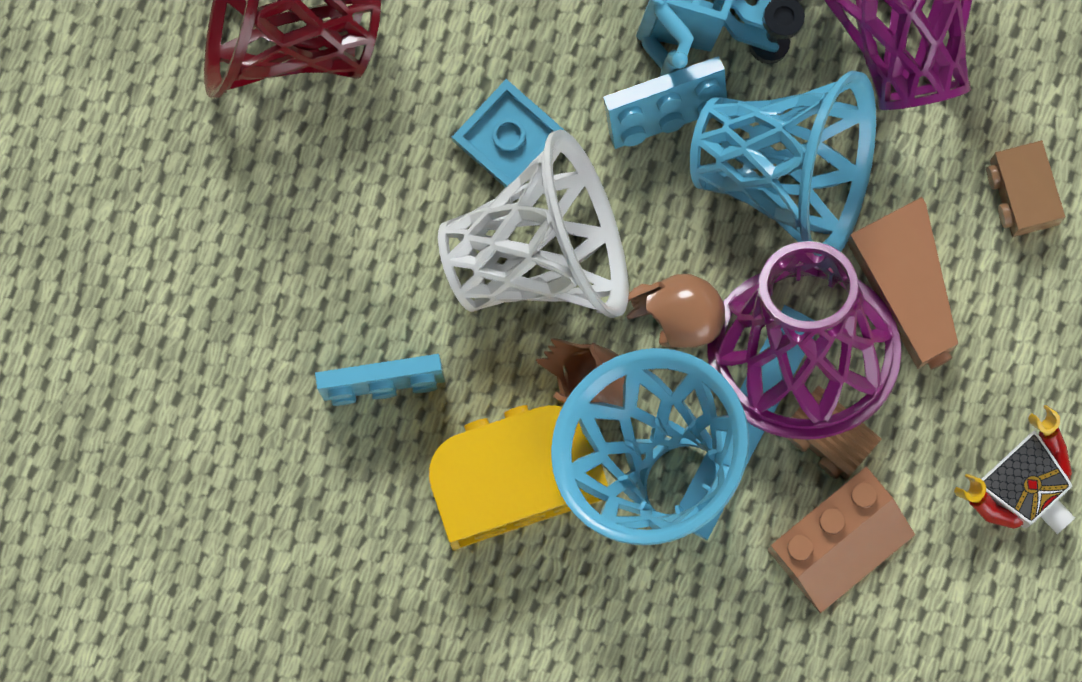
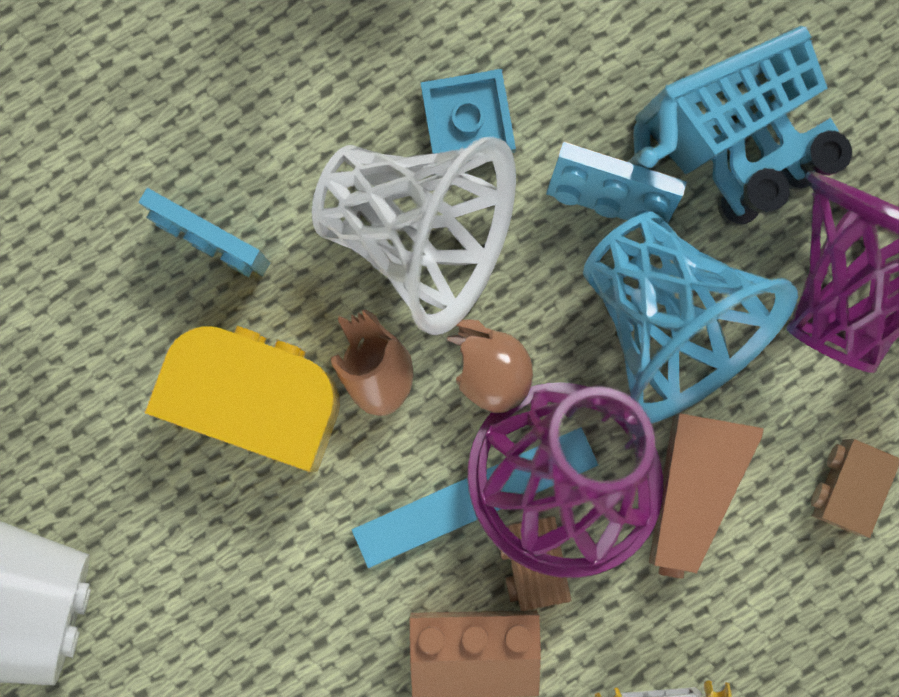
camera: 35 degrees right, 5 degrees up
(579, 408) = (428, 521): medium azure piece -> none

